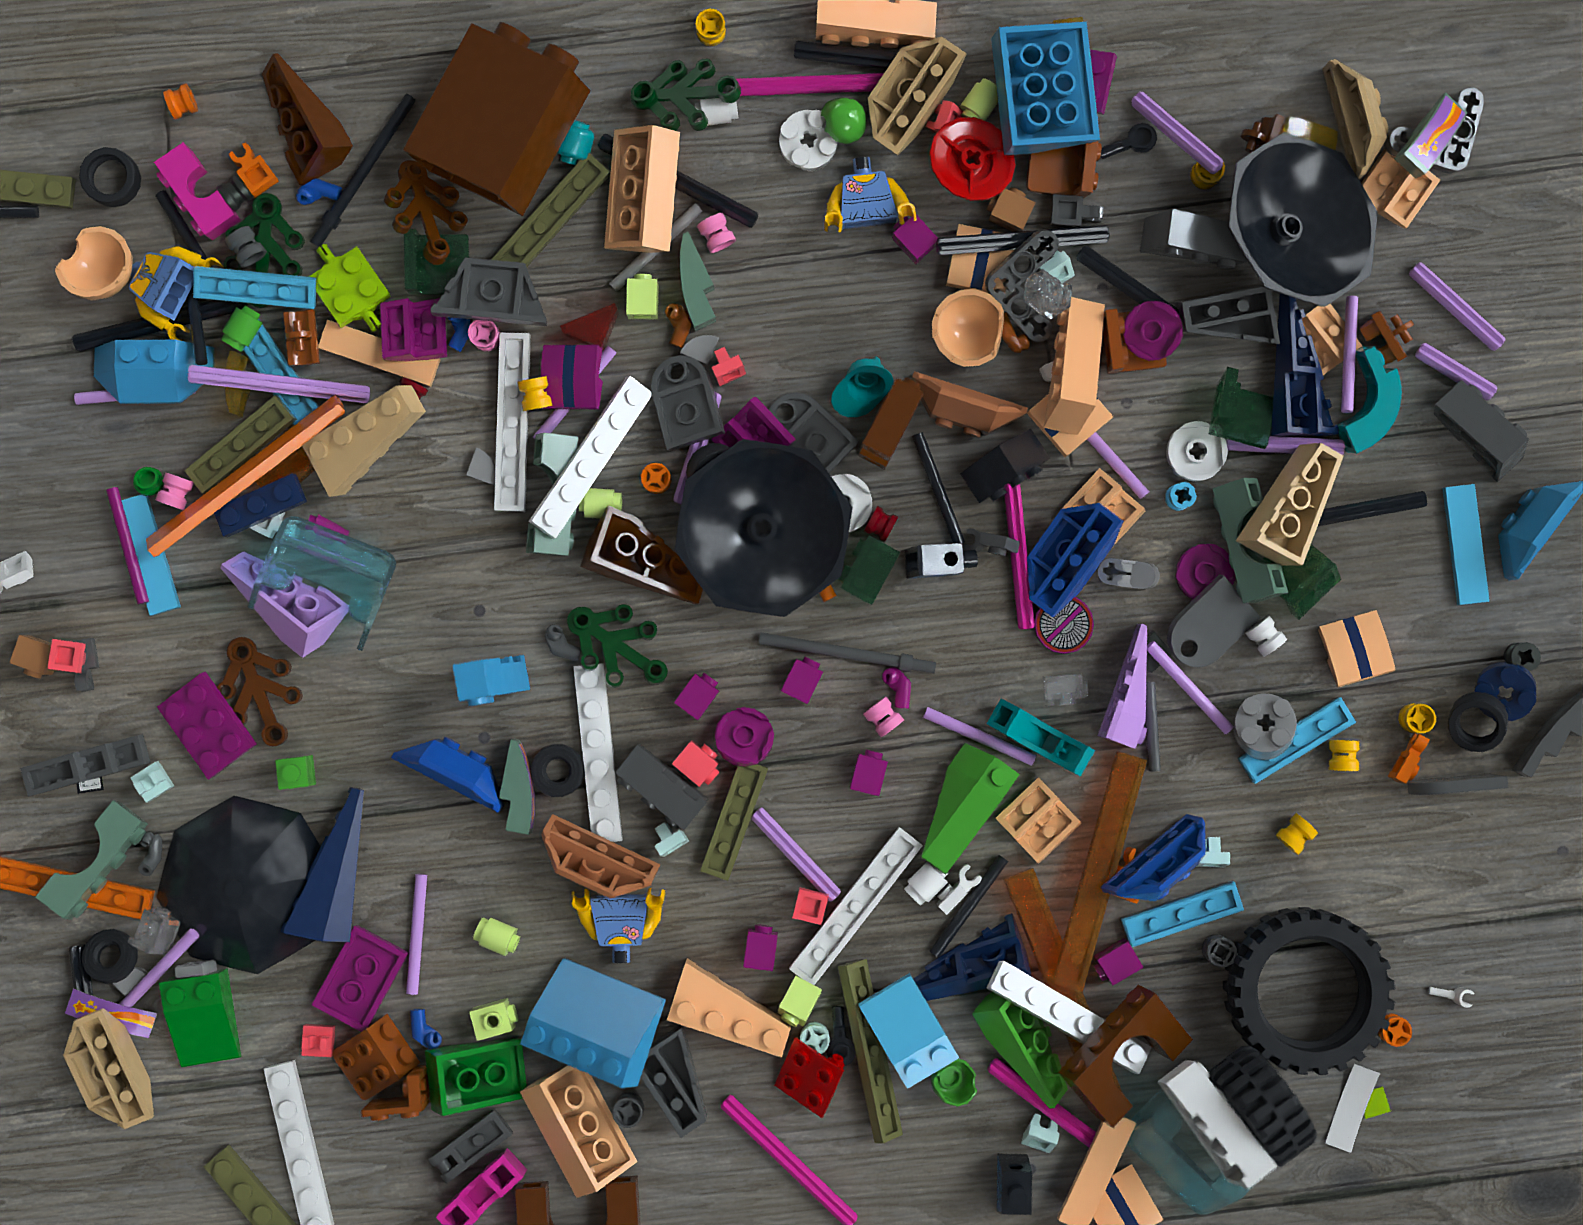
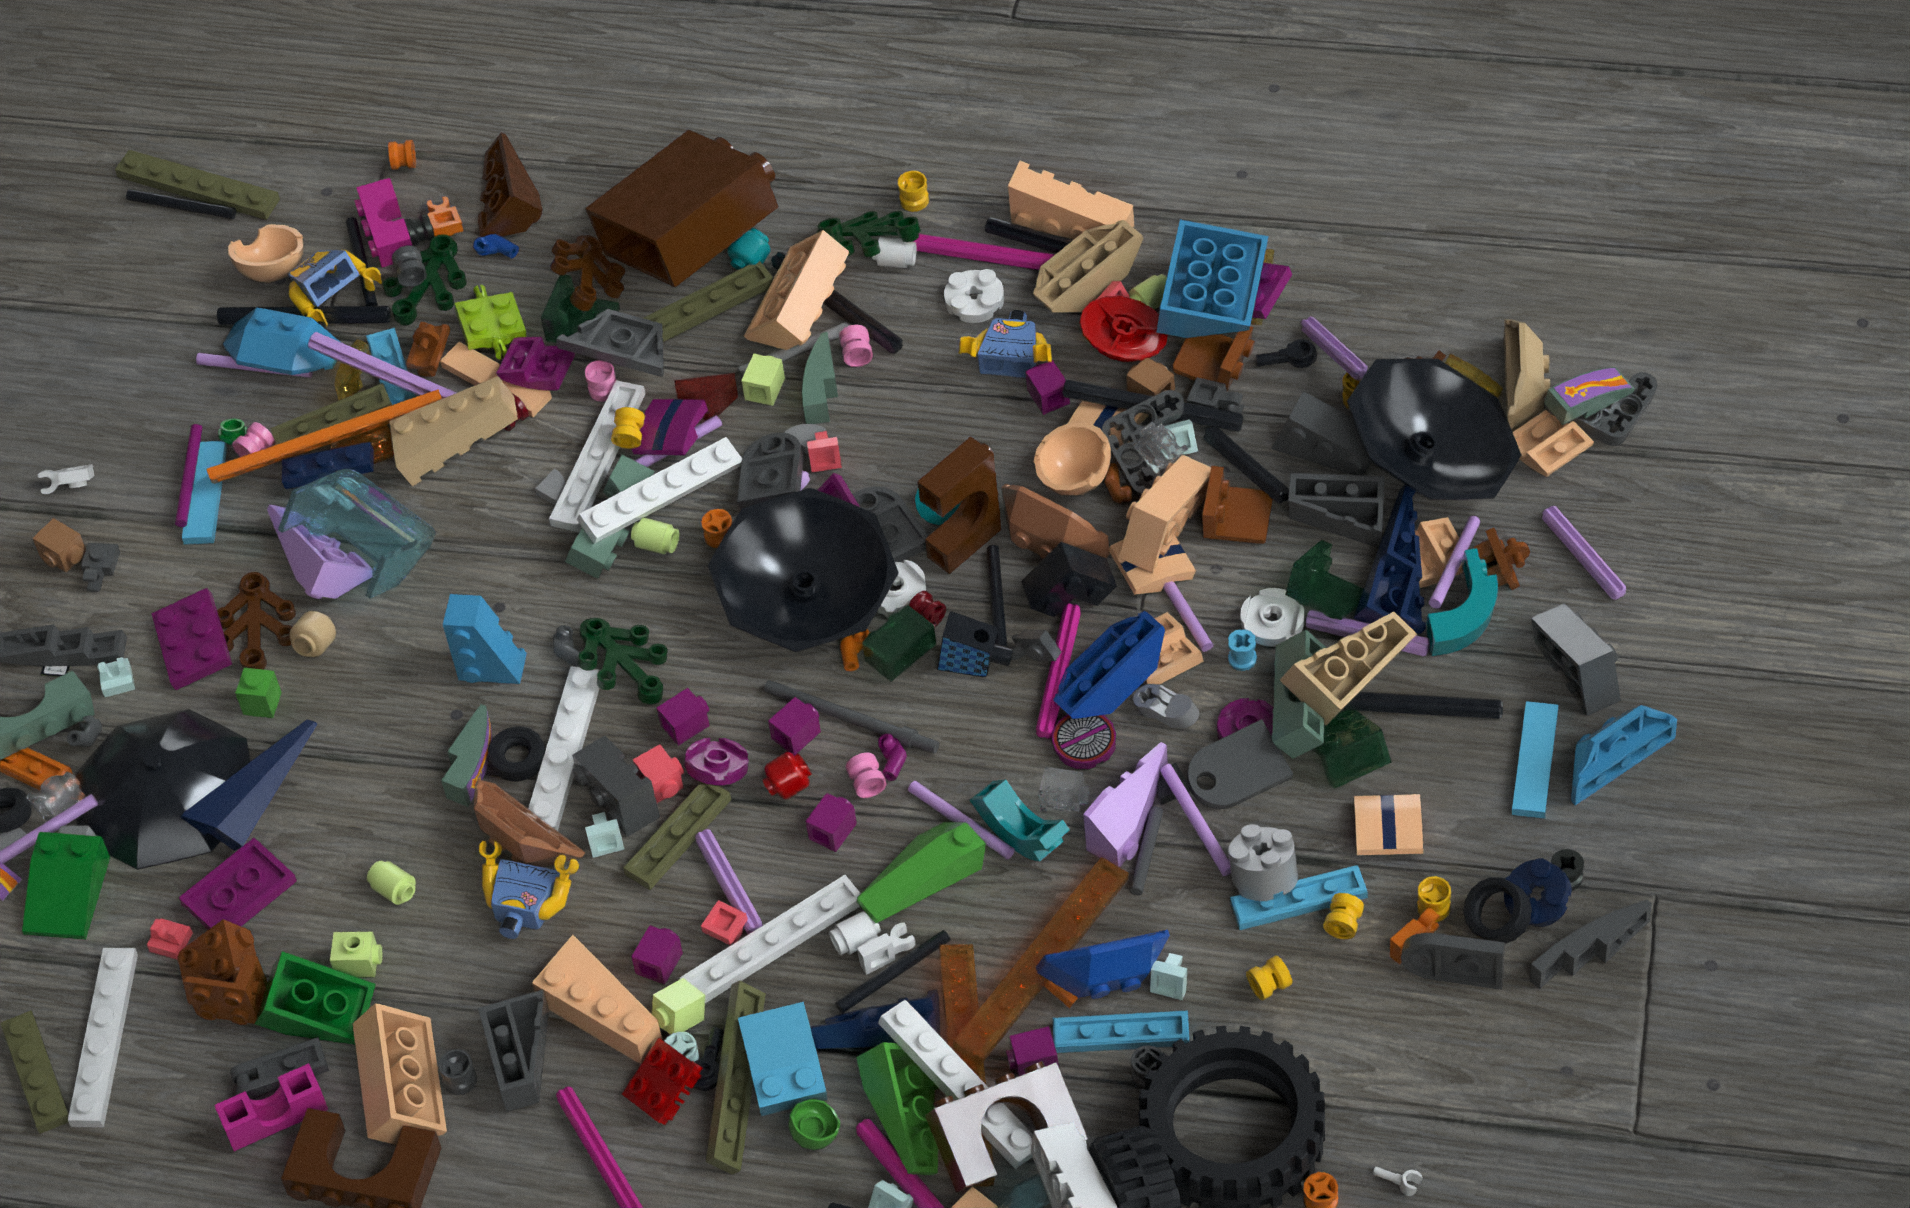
camera: 25 degrees right, 35 degrees down
(66, 656) = (90, 539): coral tile -> none
(90, 166) = (315, 213): black tyre -> none
(196, 329) = (337, 310): black bar -> none
(241, 328) = (376, 325): bright green brick -> none
(254, 287) = (403, 296): medium azure tile -> none
(320, 694) = (312, 634): none -> tan head
(331, 218) = (499, 267): black bar -> none
(416, 934) = (312, 867): lavender bar -> none
(422, 1032) = (277, 945): blue arm -> none
(455, 769) = (410, 723): blue wedge -> none
(461, 333) = (577, 381): blue arm -> none
(594, 1024) = (453, 972): dark azure slope -> none
(634, 555) = (667, 583): reddish brown wedge -> none
(680, 323) = (793, 411): dark orange arm -> none
(813, 736) = (786, 775): none -> red head
(844, 119) = (1013, 281): bright green hair -> none
(1038, 820) = (995, 908): light nougat slope -> none
(1153, 330) = (1257, 500): magenta tile -> none
(1266, 636) = (1294, 793): white wheel -> none
(1454, 370) = (1554, 597): lavender axle -> none

